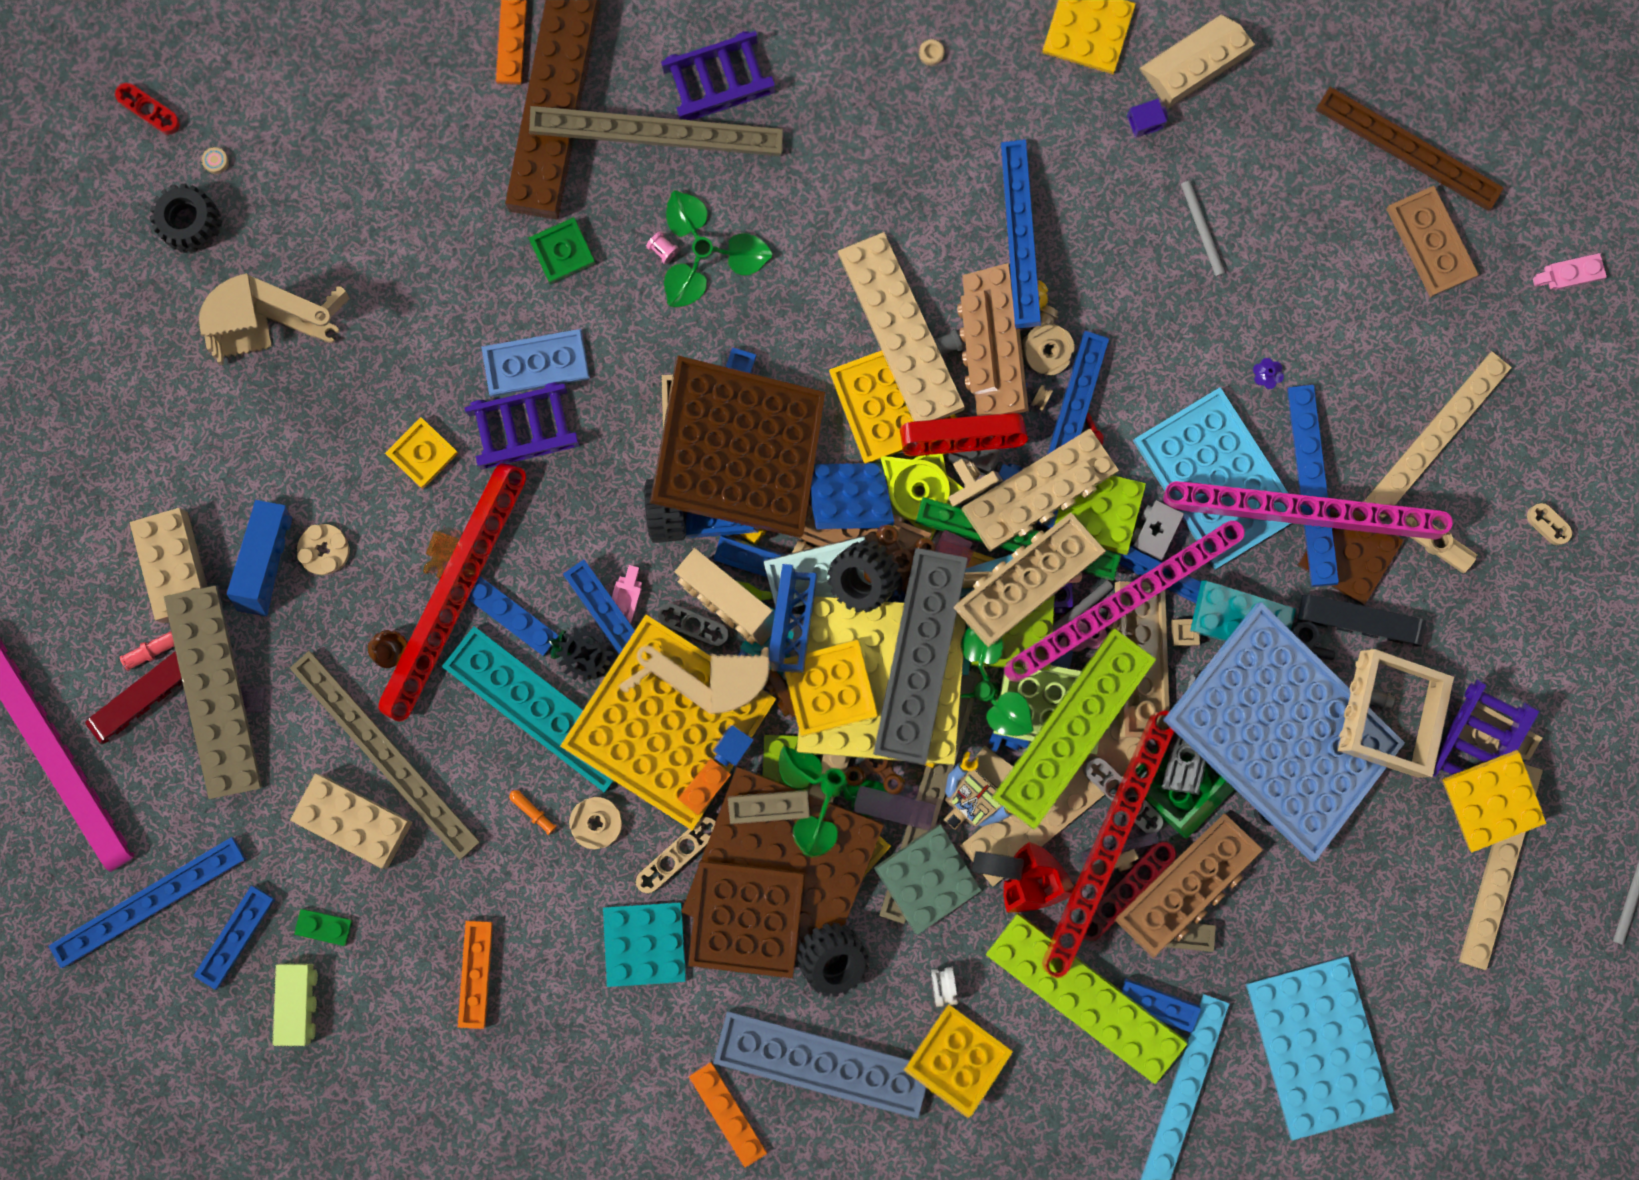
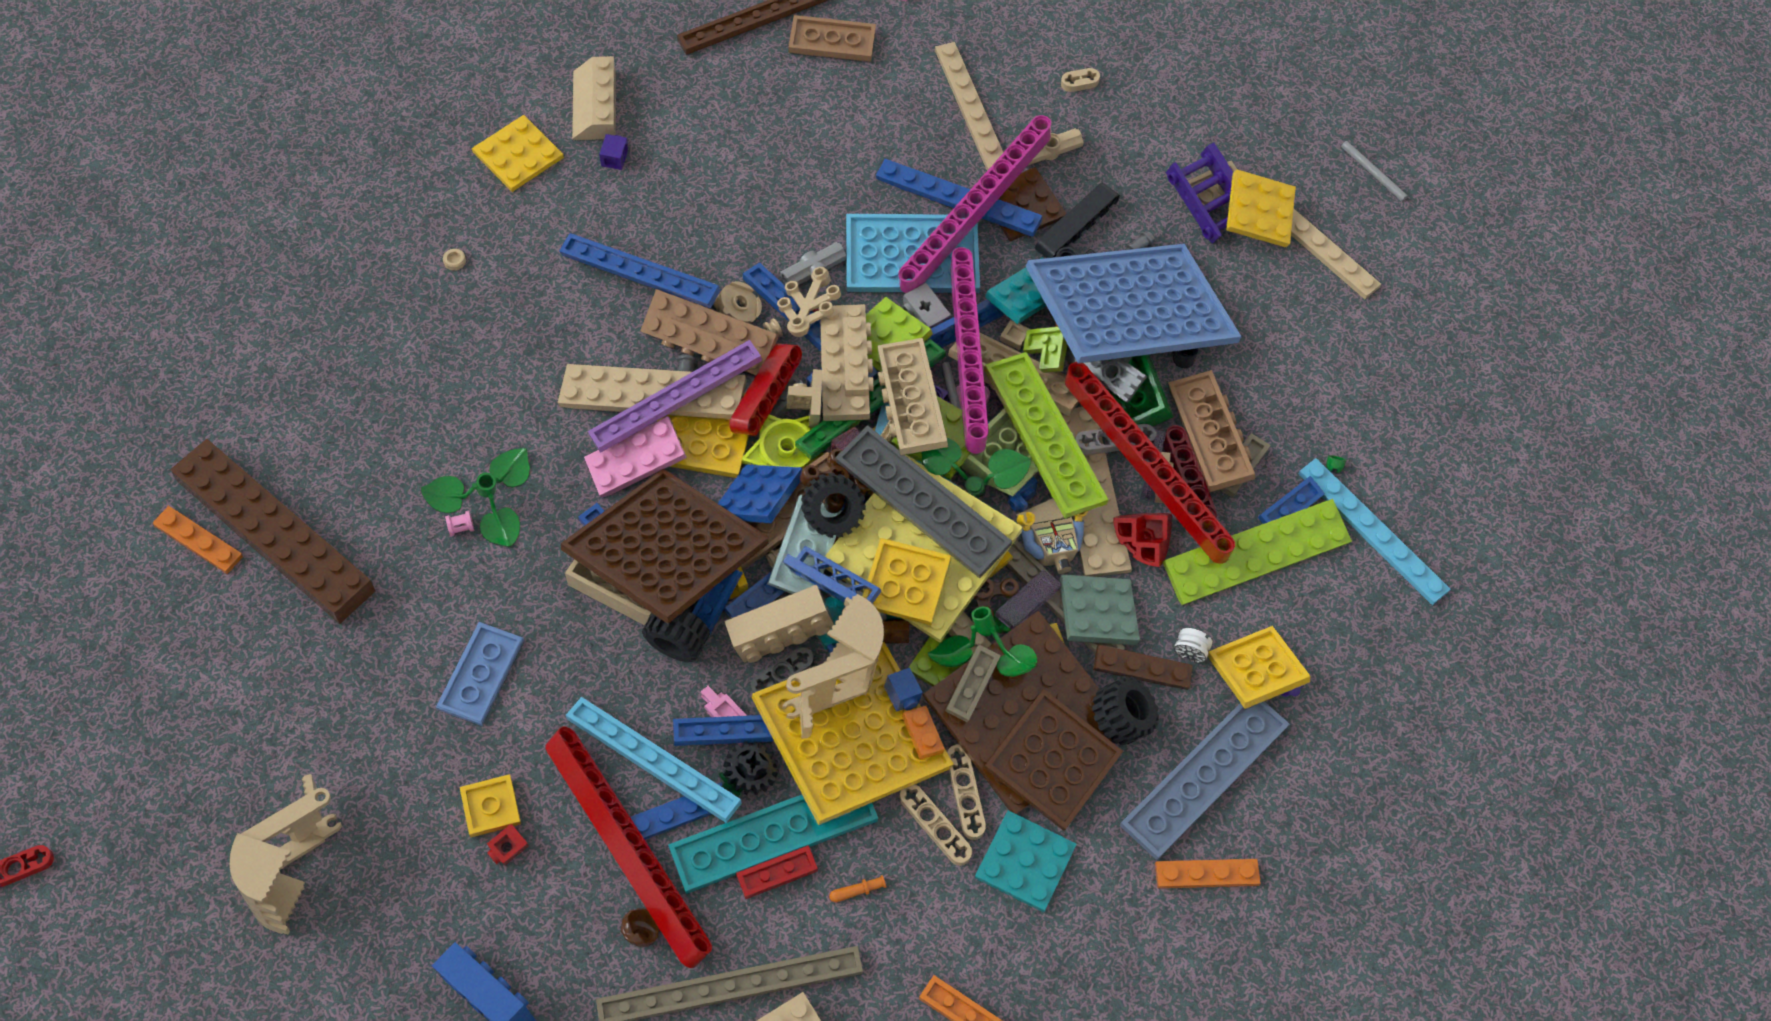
camera: 65 degrees left, 20 degrees down
(171, 204) = (151, 900): black tyre -> none
(215, 160) = (106, 836): tan tile -> none
(316, 536) = (529, 939): tan plate -> none
(404, 494) = (511, 836): none -> red brick
(440, 549) = (584, 837): clear orange plate -> none
(505, 733) = (776, 872): none -> red plate
(539, 444) = (542, 728): dark purple fence -> none
(540, 565) = (654, 759): none -> medium azure plate
(561, 250) = (404, 599): green plate -> none
(582, 829) = (900, 827): tan plate -> none
(628, 844) = (934, 825): none -> tan beam
(655, 131) = (362, 472): dark tan plate -> none
(736, 93) = (372, 423): dark purple fence -> none
(822, 359) = (635, 457): none -> bright pink plate
(894, 951) = (1142, 667): none -> reddish brown plate
(899, 357) = (674, 396): none -> medium lavender plate
(998, 865) = (1120, 546): black tyre -> none
(1086, 416) = (799, 324): none -> tan plant
(1140, 390) = (809, 261): none -> light grey piece
(1189, 666) = (1050, 345): none -> lime plate
(1202, 228) = (724, 165): light grey bar -> none
(1236, 1026) = (1335, 462): none -> green hinge
(1264, 377) = (856, 183): dark purple plant -> none
(1319, 1048) = (1382, 419): medium azure plate -> none
(1431, 720) = (1175, 215): tan window -> none

